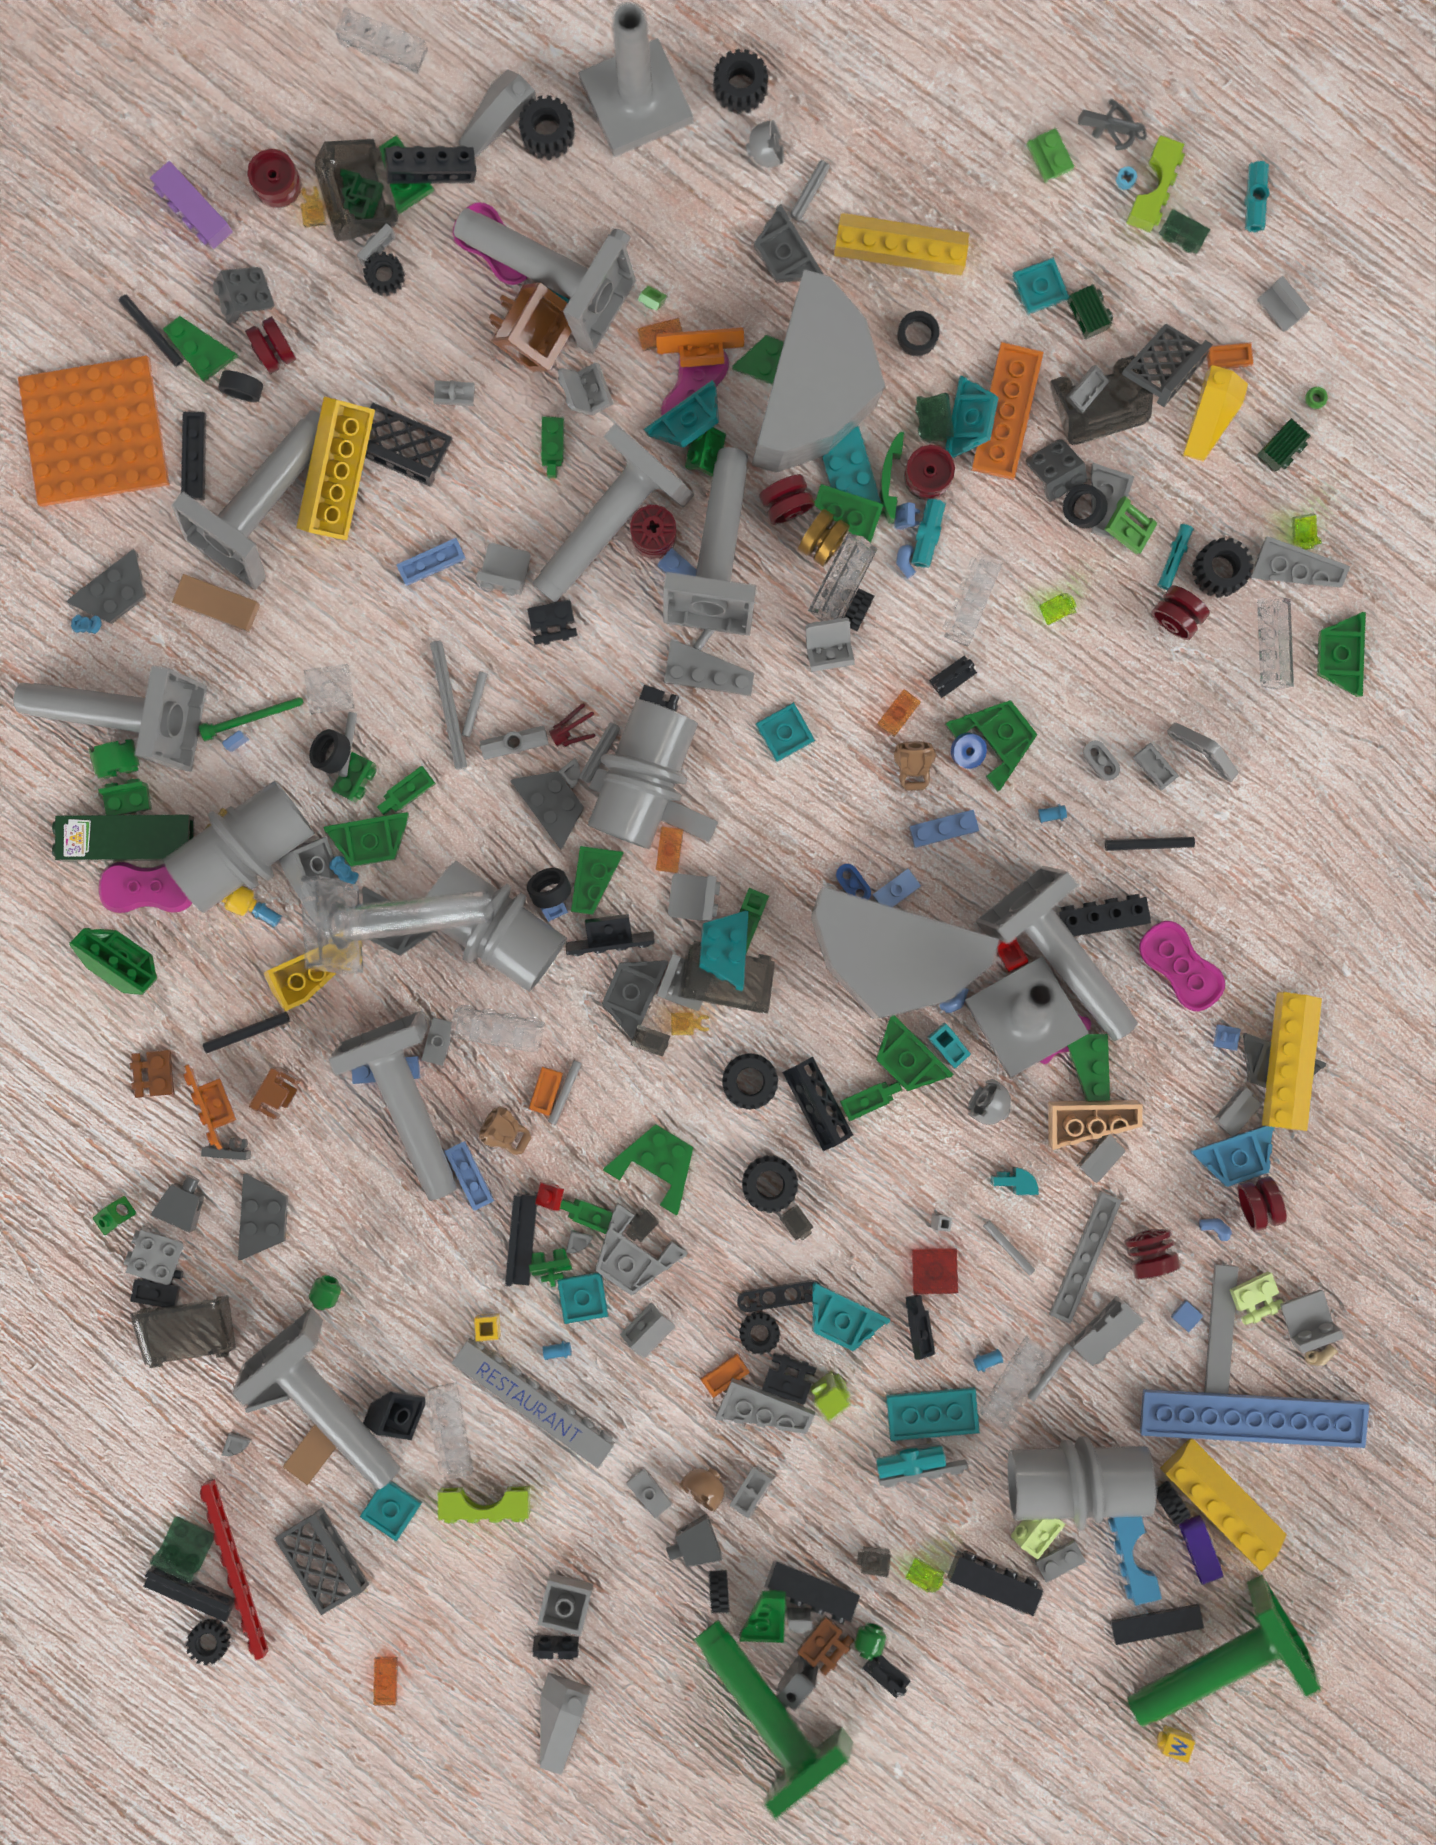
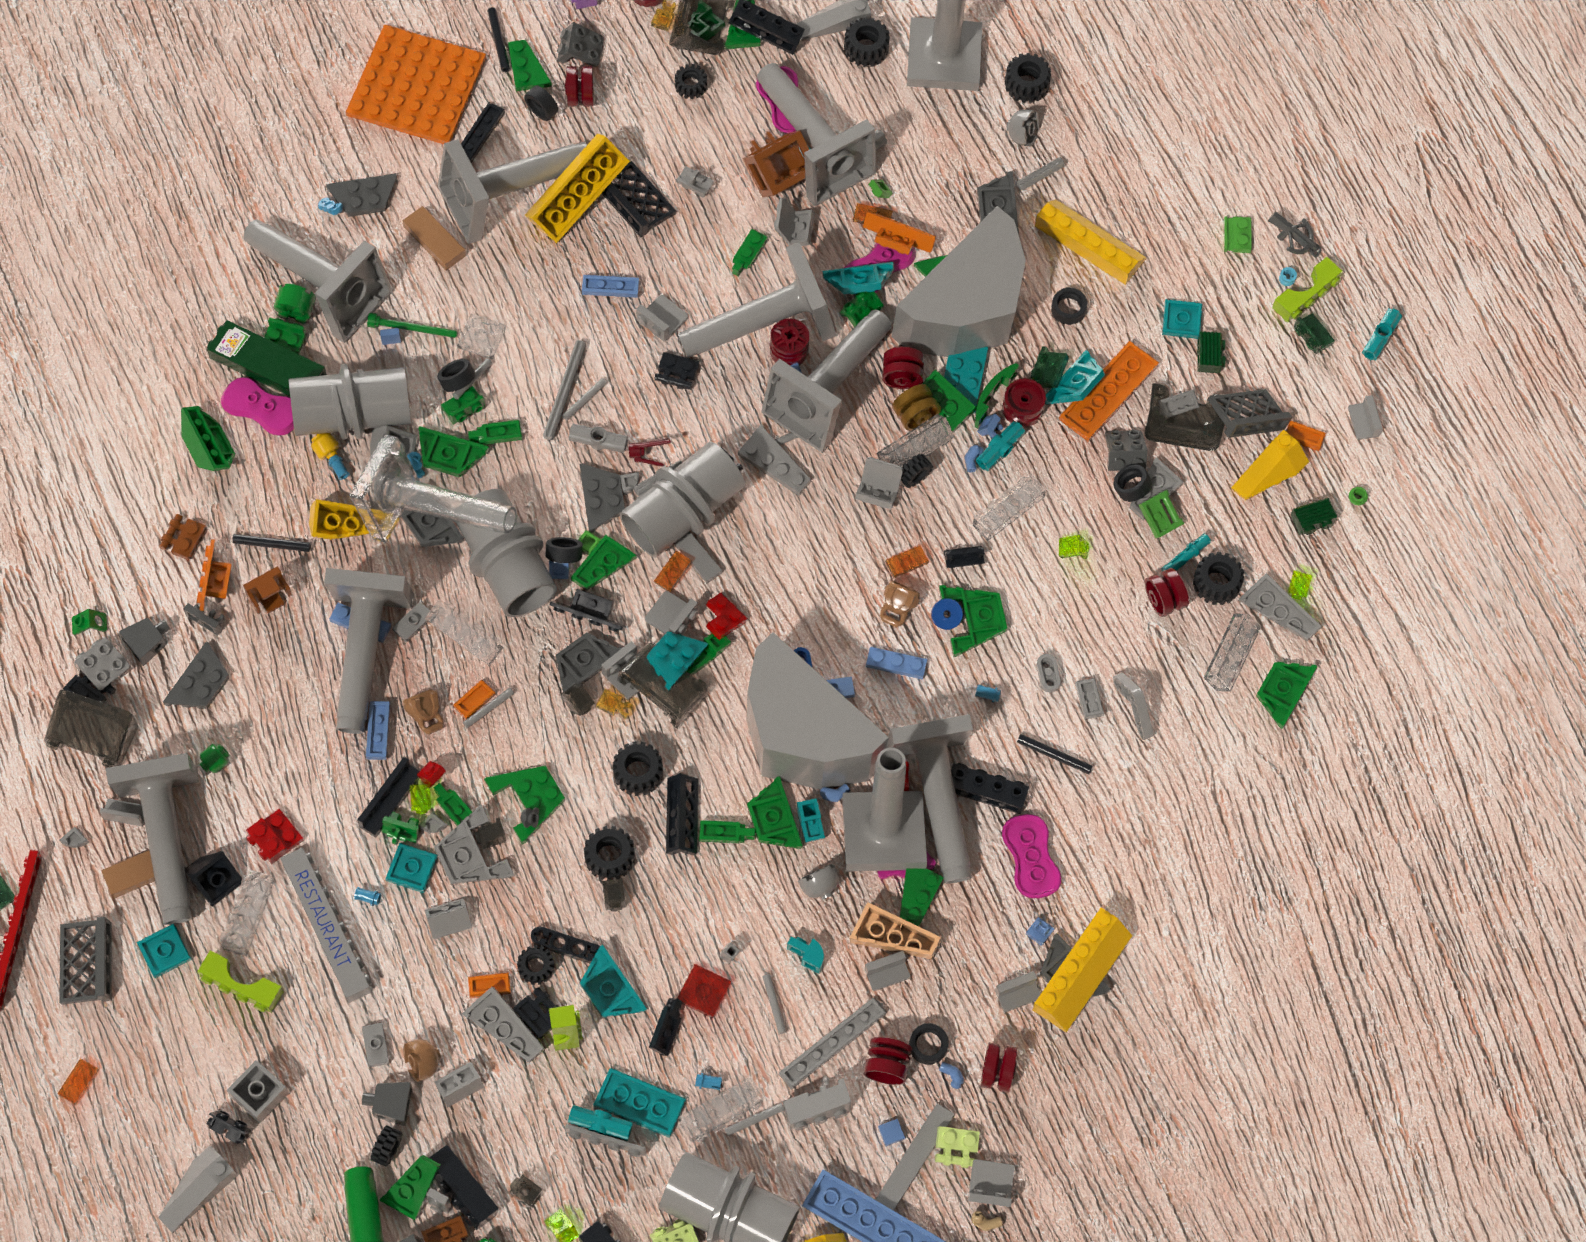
camera: 25 degrees right, 20 degrees down
(376, 243) = (700, 58): light grey plate -> none
(430, 1339) = (273, 836): none -> red plate
(487, 1327) = (324, 846): yellow brick -> none
(552, 1225) = (420, 798): none -> clear neon green bracket
(567, 861) = (589, 542): none -> bright green tile
(672, 1189) = (530, 817): none -> dark grey plate
(751, 867) = (728, 616): none -> red plate
(785, 732) = (810, 533): teal tile -> none
(1195, 1205) = (929, 1028): none -> black tyre
(1238, 1156) = (1000, 1025): dark azure wing -> none

